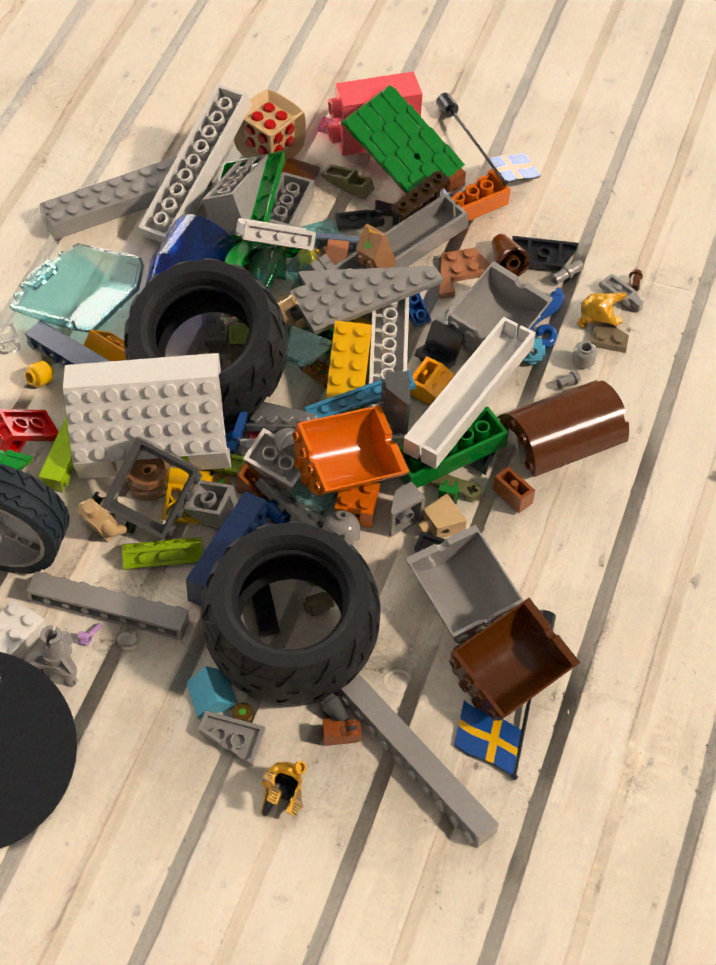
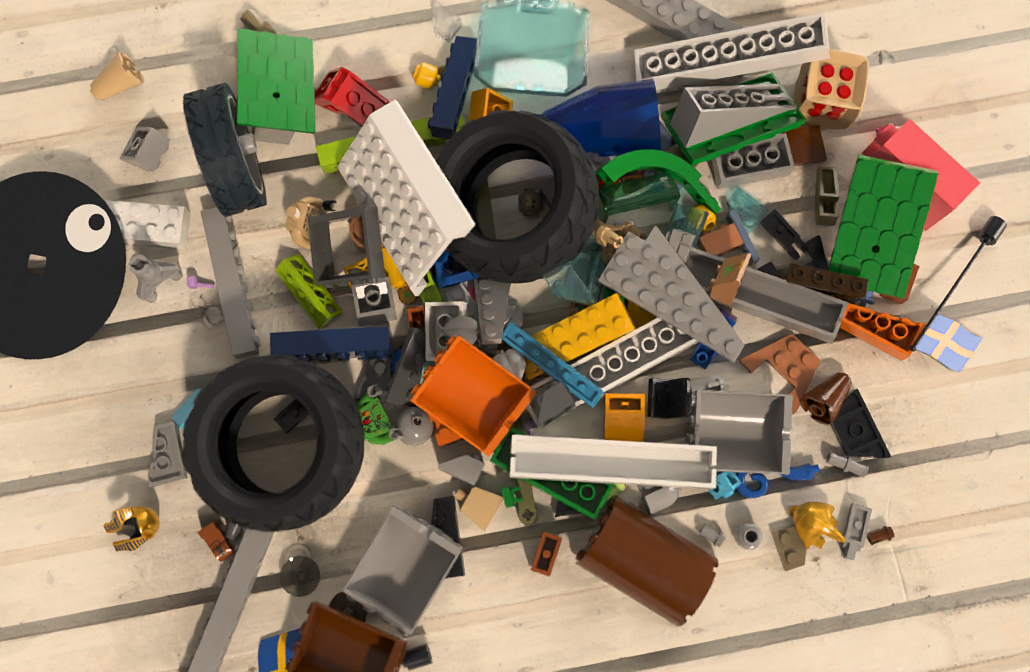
camera: 60 degrees right, 25 degrees up
(275, 234) = (693, 199): white fence -> none
(416, 672) = (290, 572): none -> clear smoke dish
(512, 393) = (657, 497): none -> light grey brick

